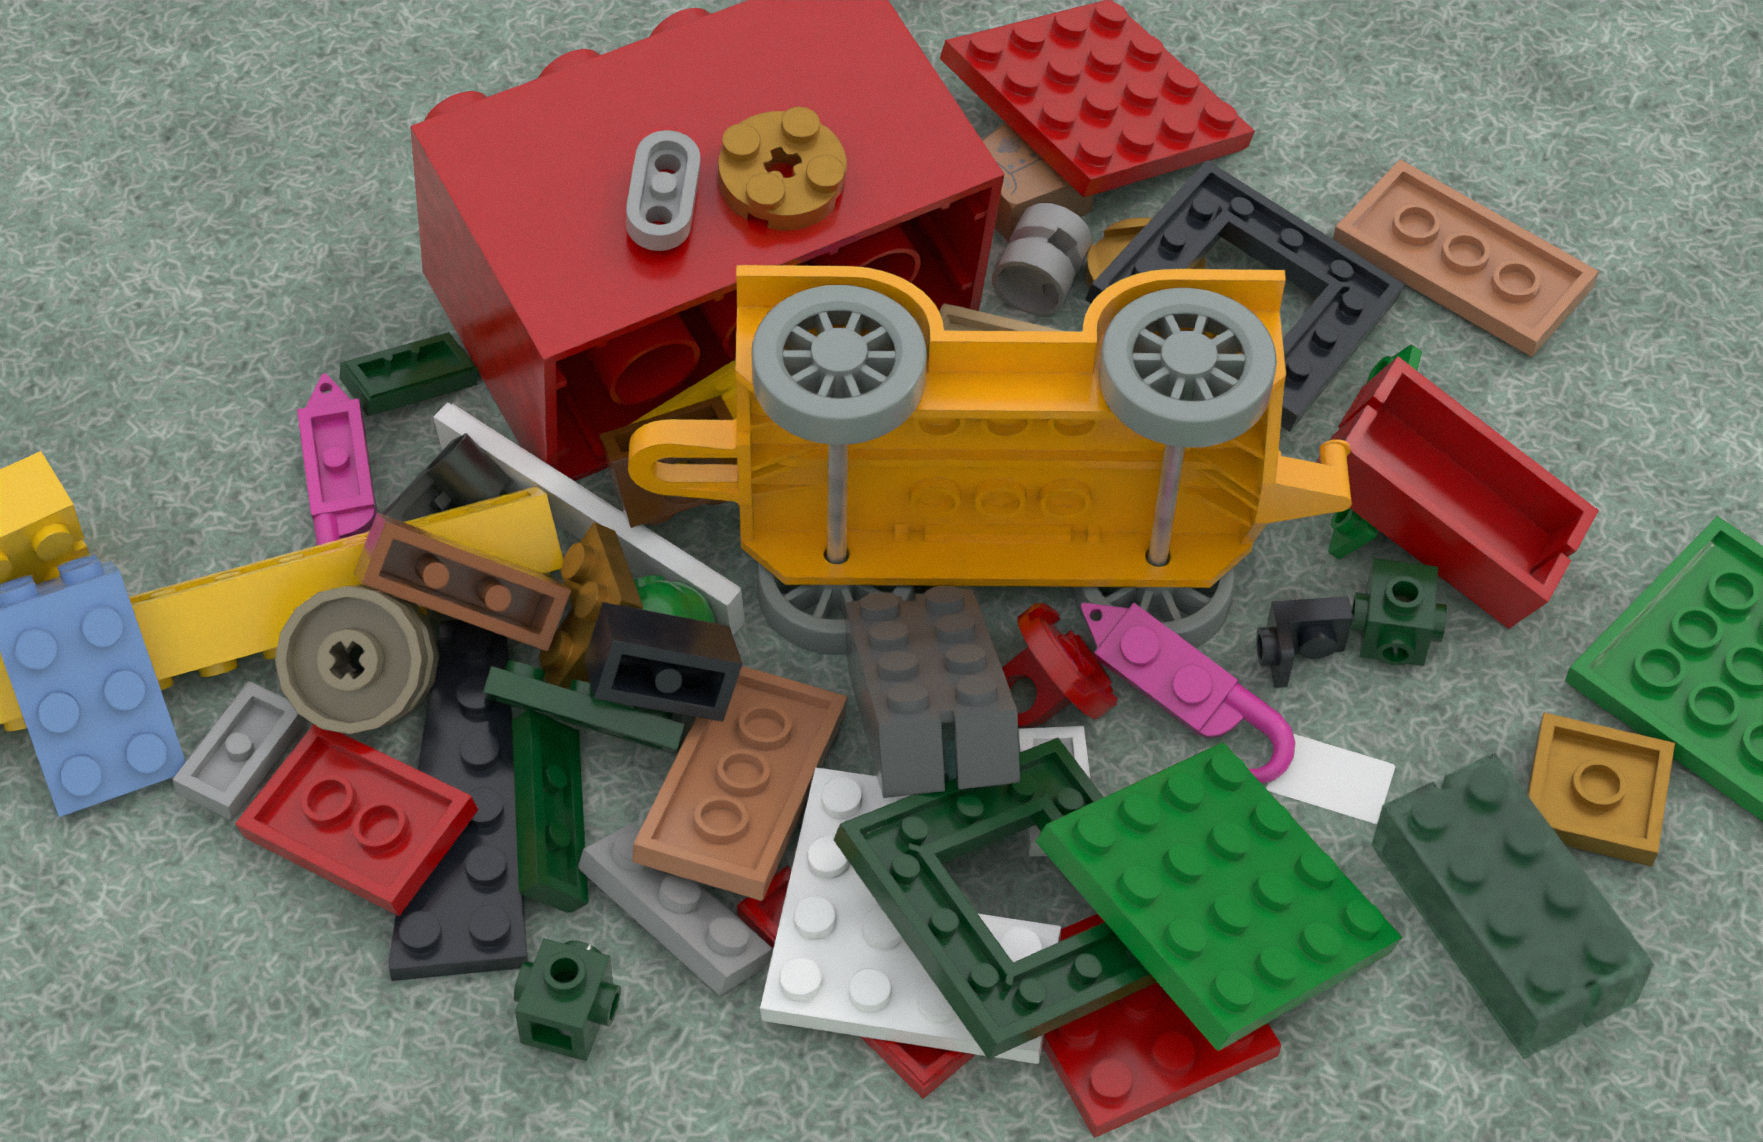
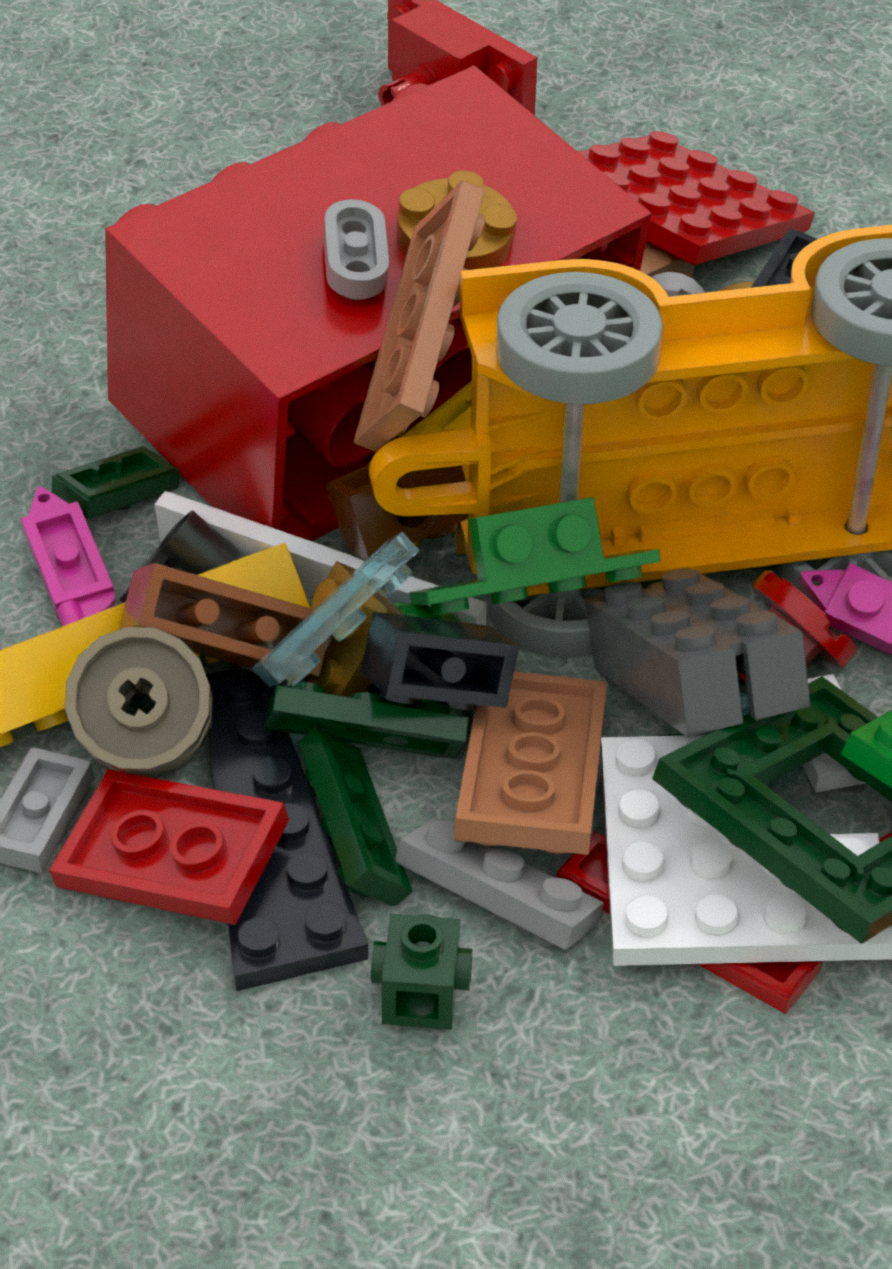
camera: 10 degrees left, 10 degrees down
(567, 597) = (338, 612): none -> clear light blue plate
(694, 312) = (419, 318): none -> nougat plate
(786, 552) = (531, 548): none -> green bracket

